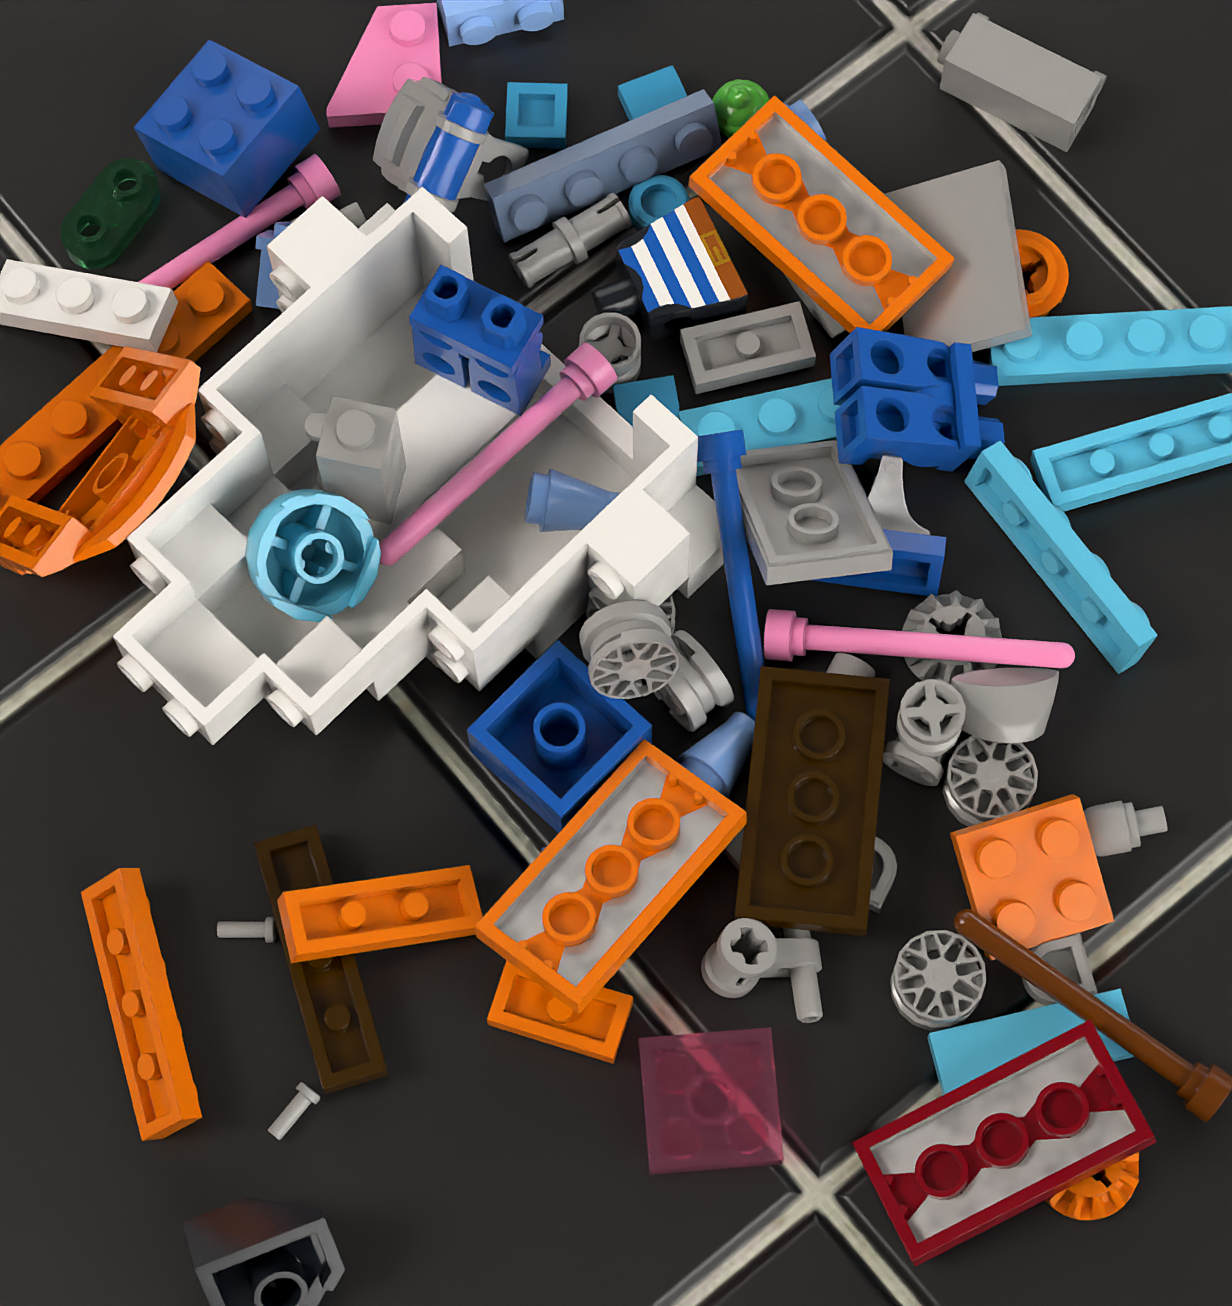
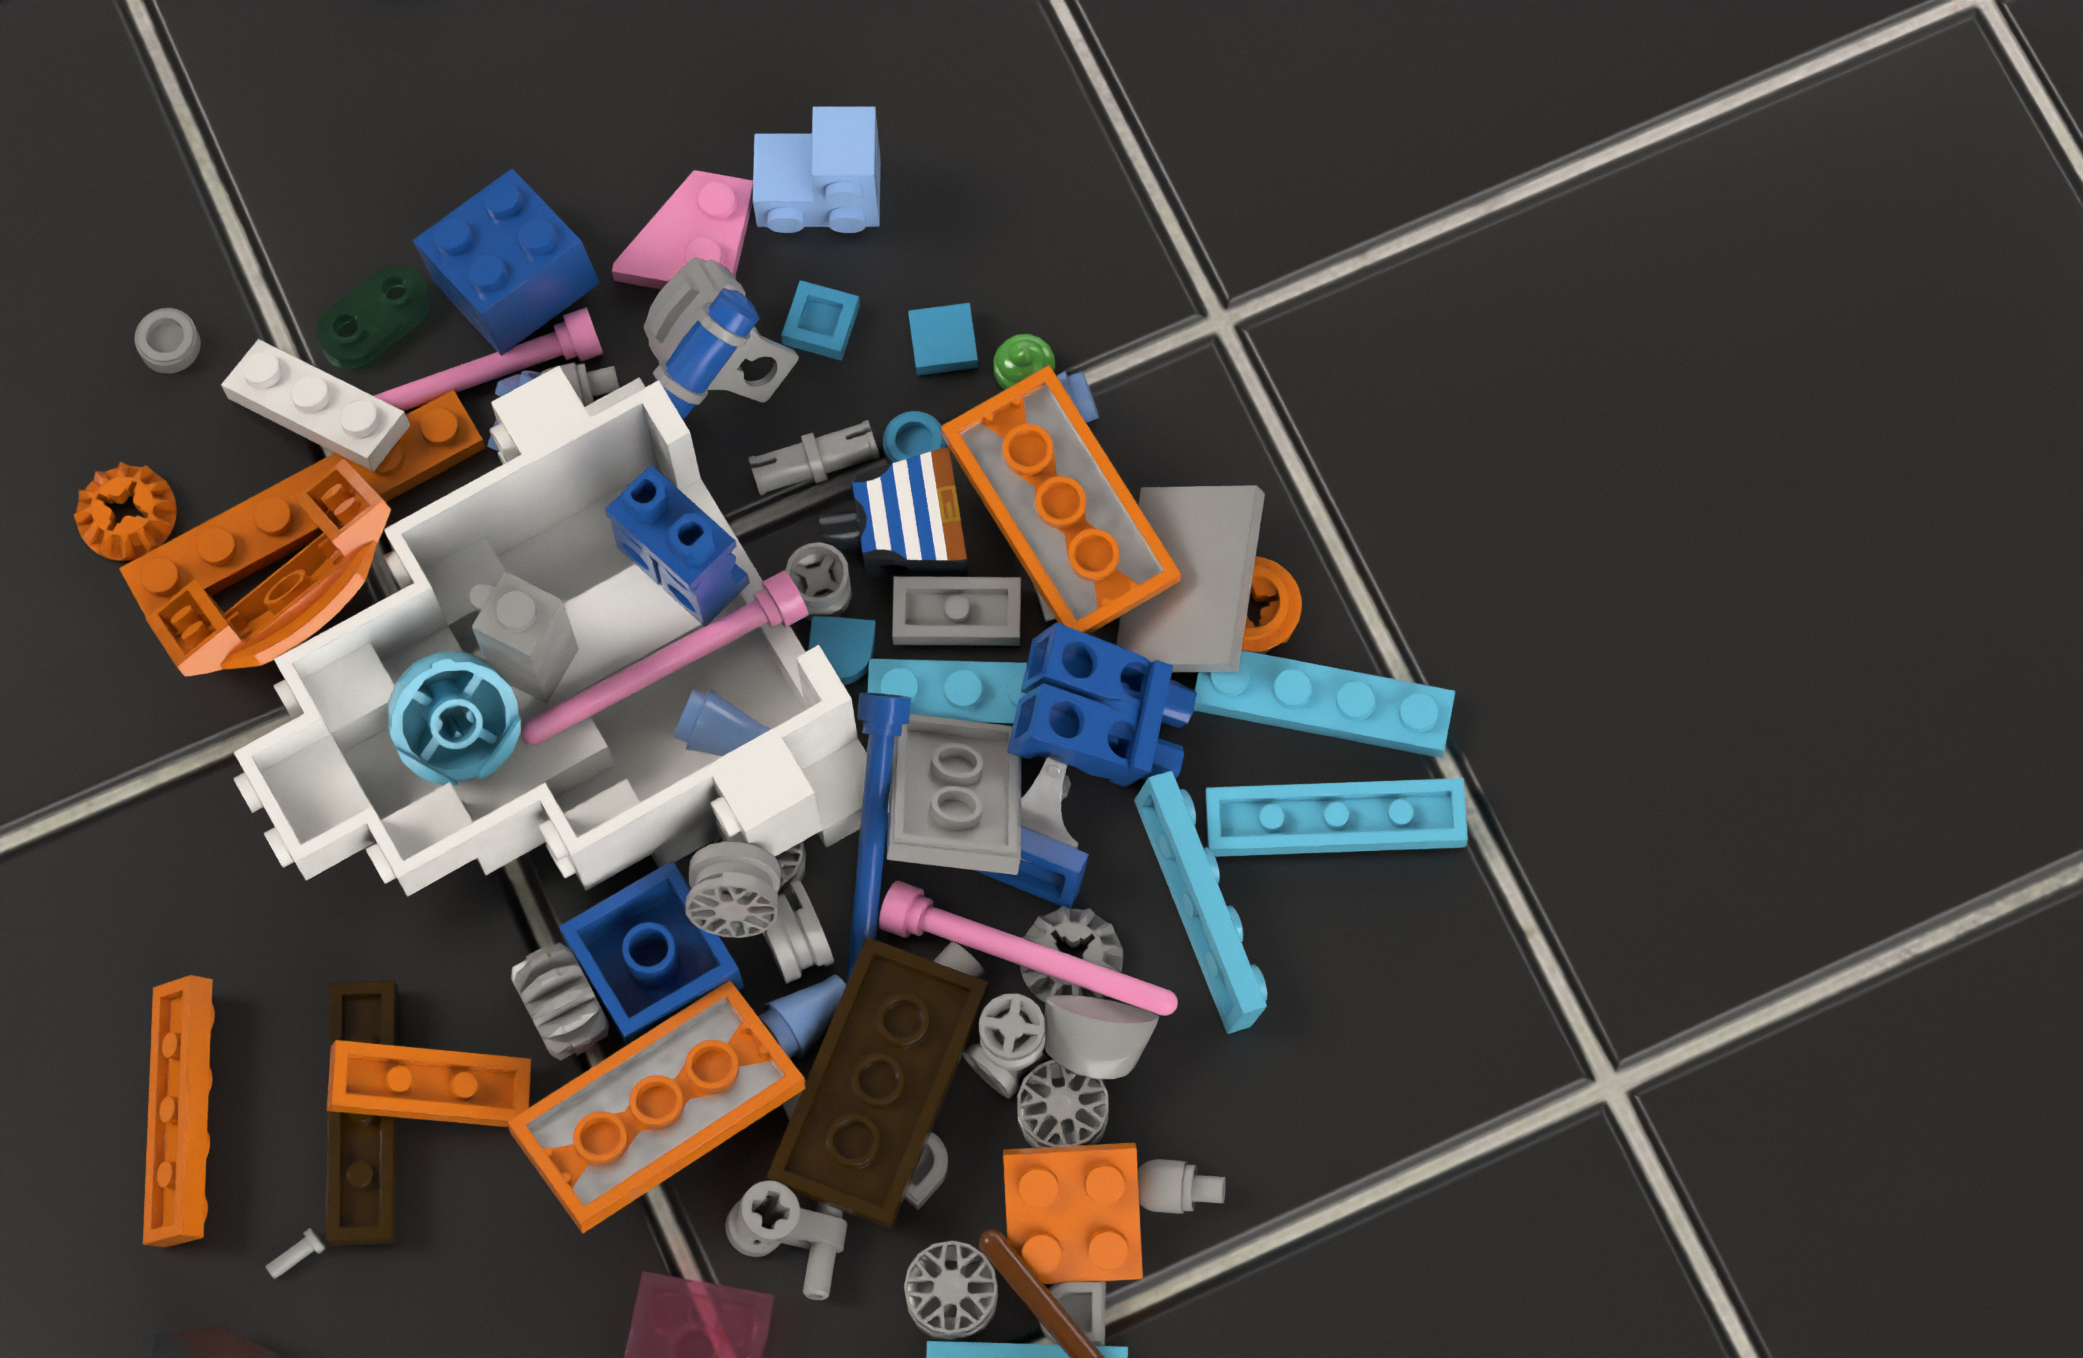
camera: 15 degrees right, 0 degrees up
(249, 929) = (302, 1065): light grey piece -> none
(484, 802) = (560, 1001): none -> light grey gear
(535, 1013) = (601, 1251): orange plate -> none
(603, 165) = (868, 390): sand blue plate -> none
(1018, 81) = (1310, 405): light grey brick -> none

